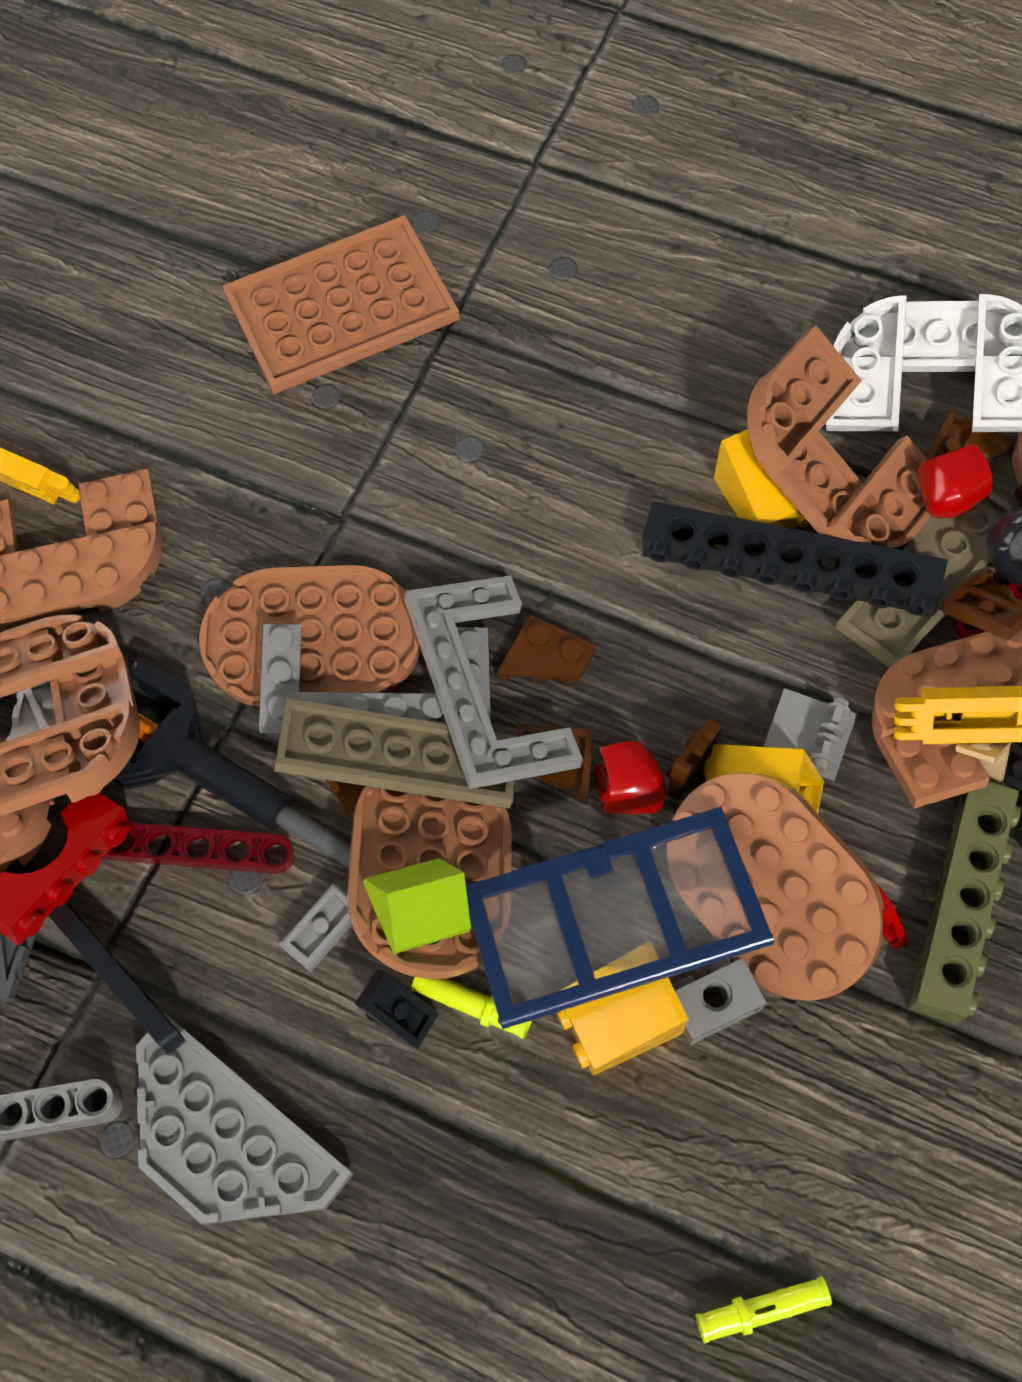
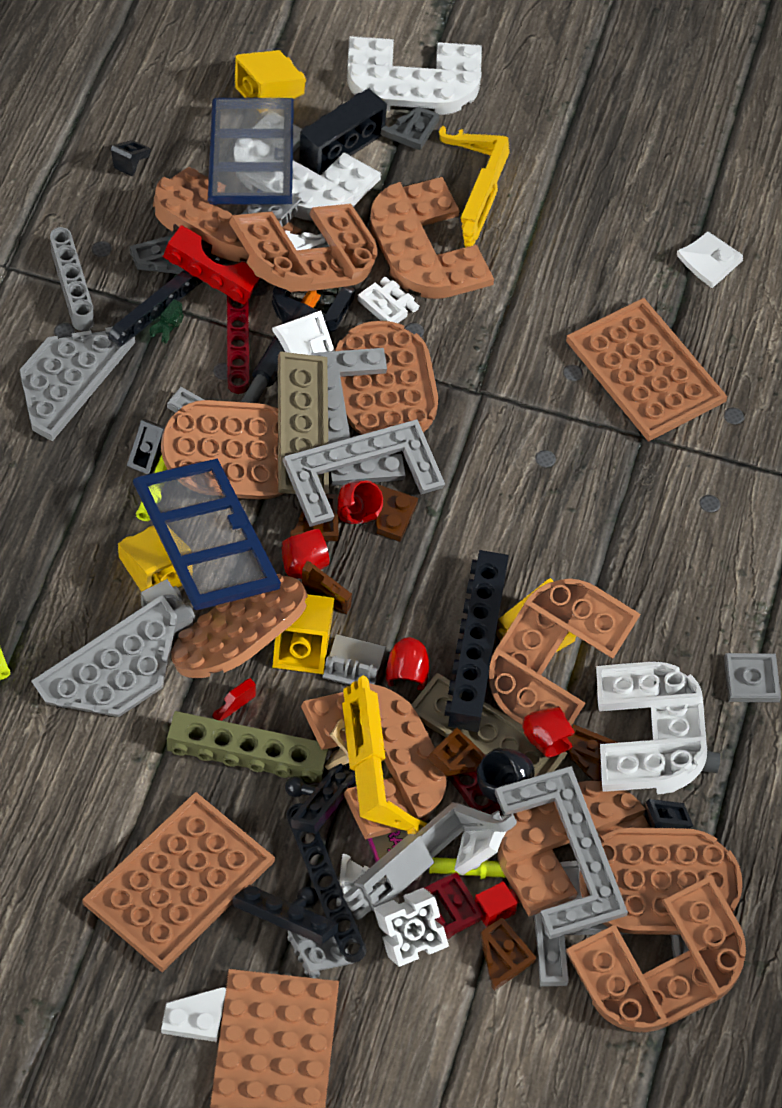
camera: 75 degrees right, 10 degrees down
(134, 947) = (170, 318): none -> clear green plate
(164, 204) = (710, 258): none -> white plate
(167, 623) = (385, 307): none -> white plate
(225, 738) = (305, 335): none -> white plate
(420, 904) = (203, 435): lime slope -> none
(536, 690) = (359, 502): none -> red piece
(829, 1092) = (116, 667): none -> light grey plate
(830, 658) = (408, 661): none -> red piece
(839, 259) = (752, 677): none -> light grey tile

